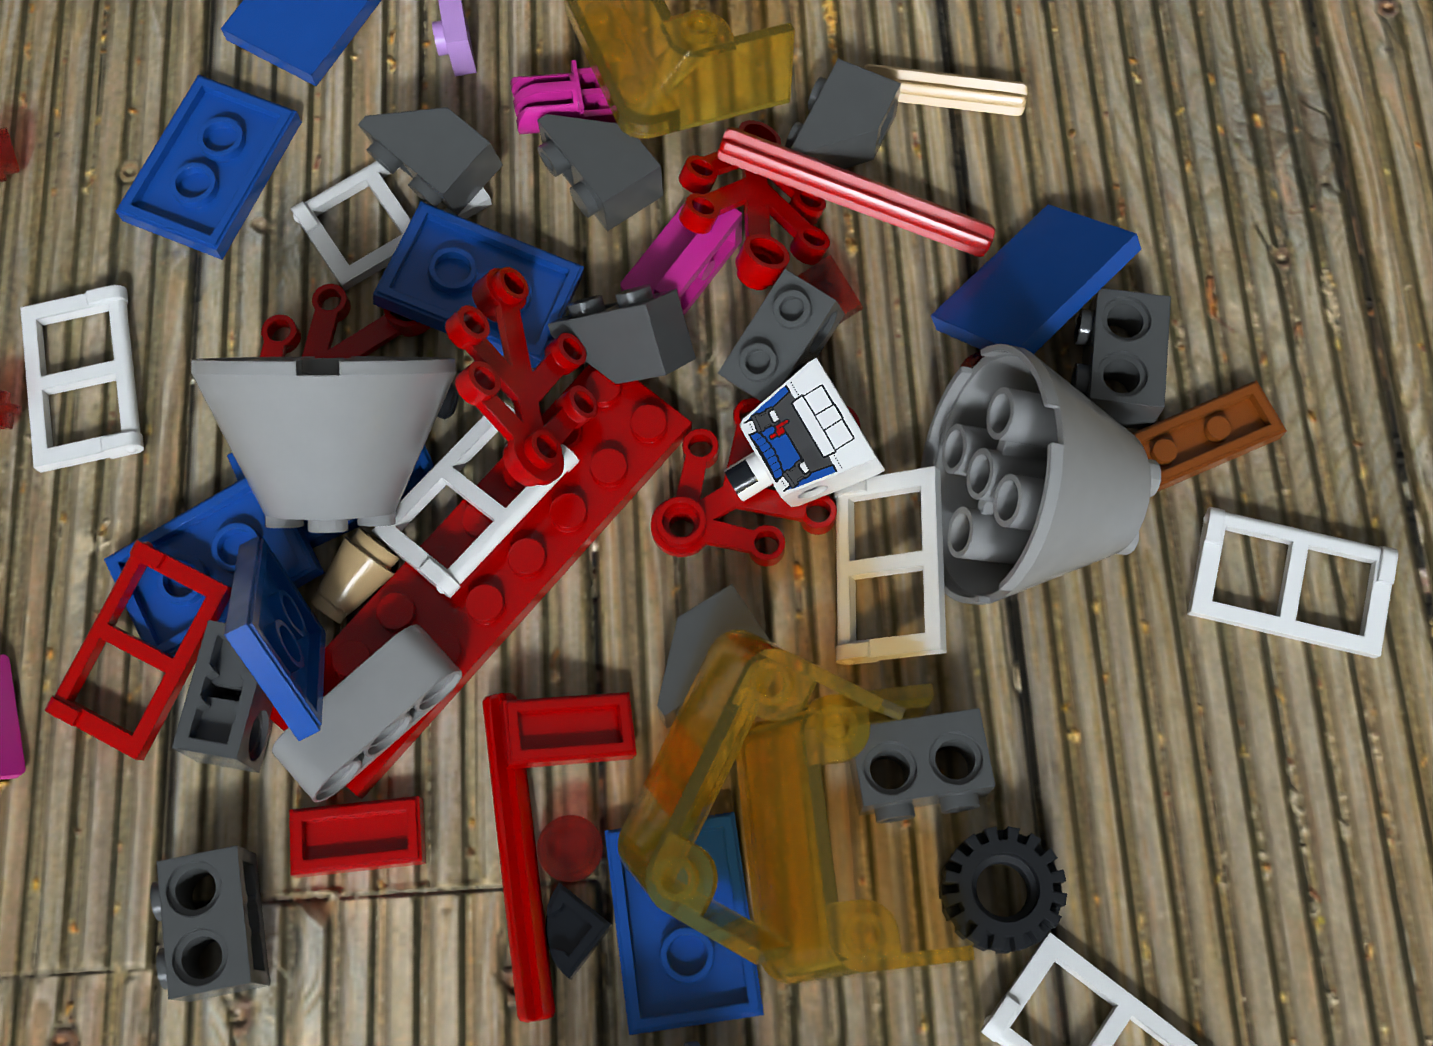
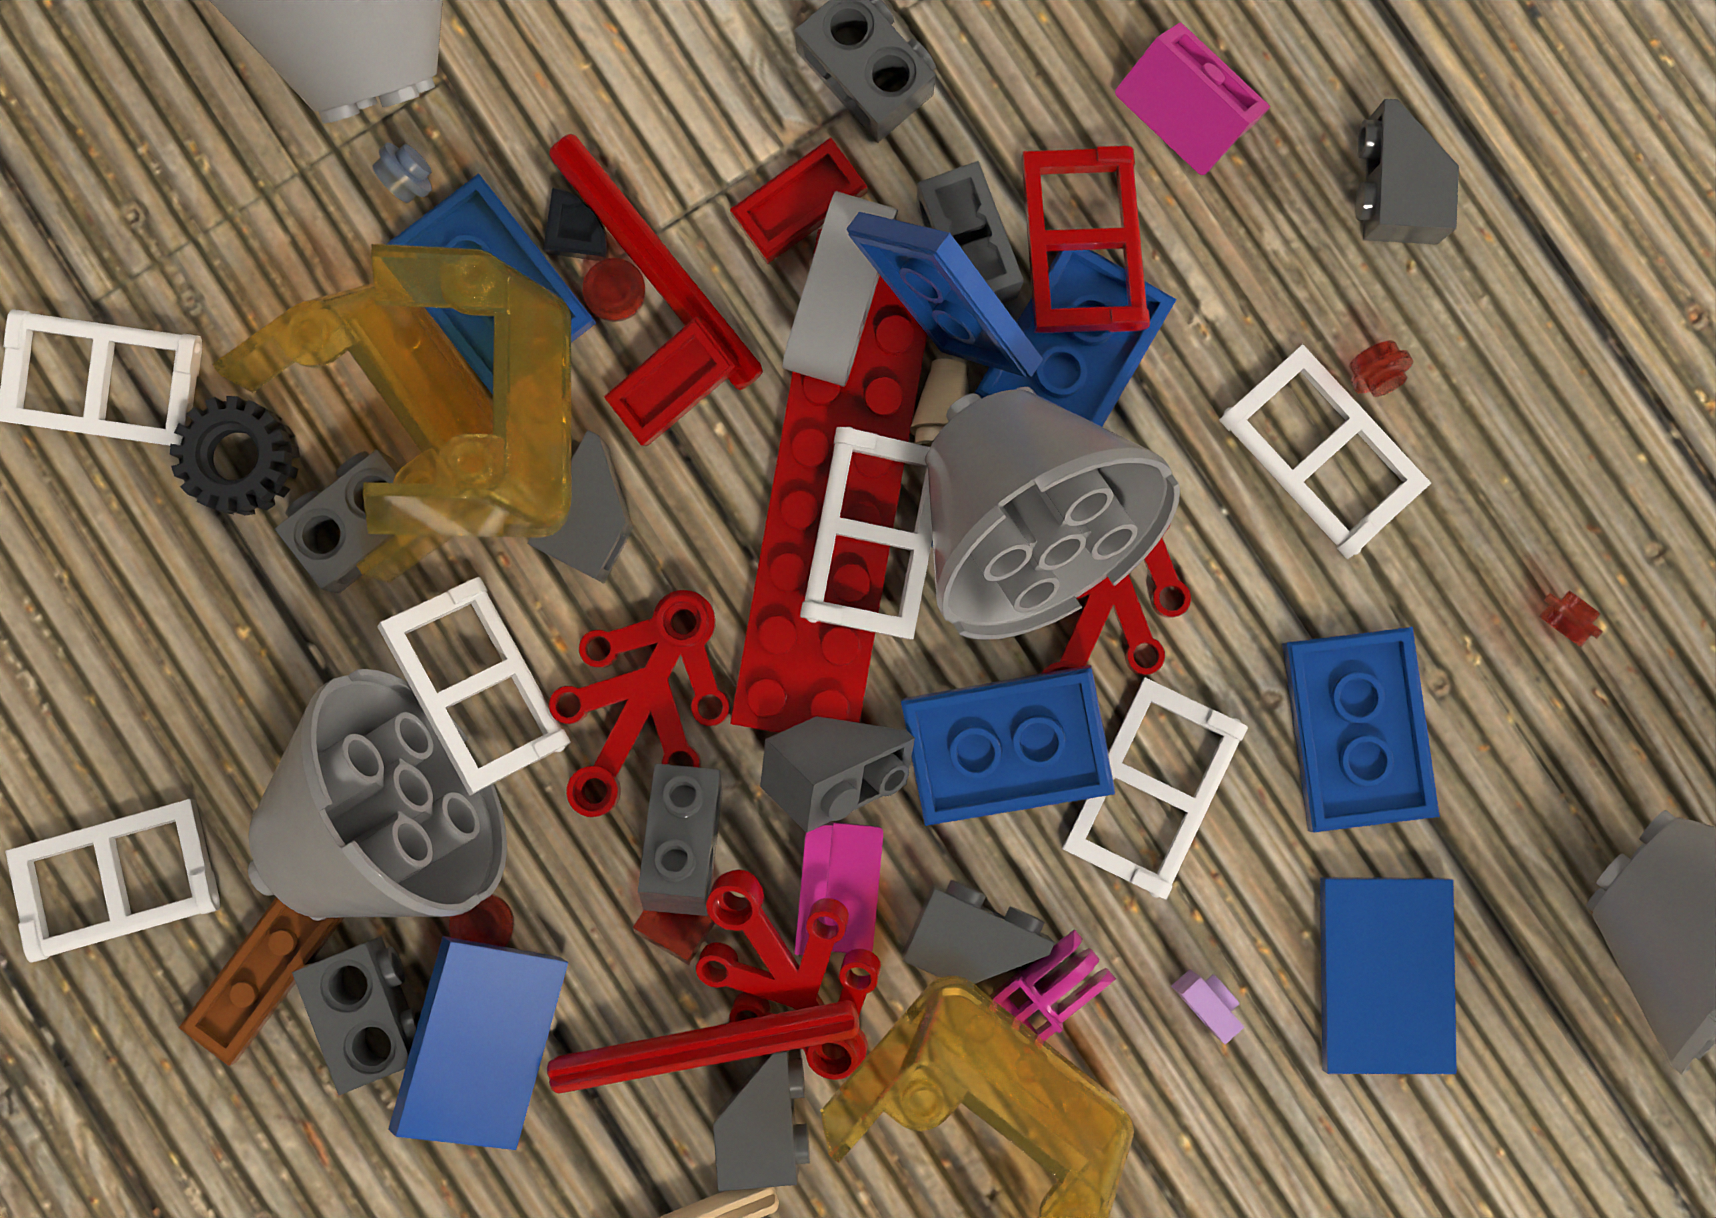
camera: 150 degrees right, 15 degrees up
(436, 150) = (1132, 851): dark grey slope -> none
(532, 450) = (839, 596): red plant -> none
(803, 442) = (602, 747): torso -> none

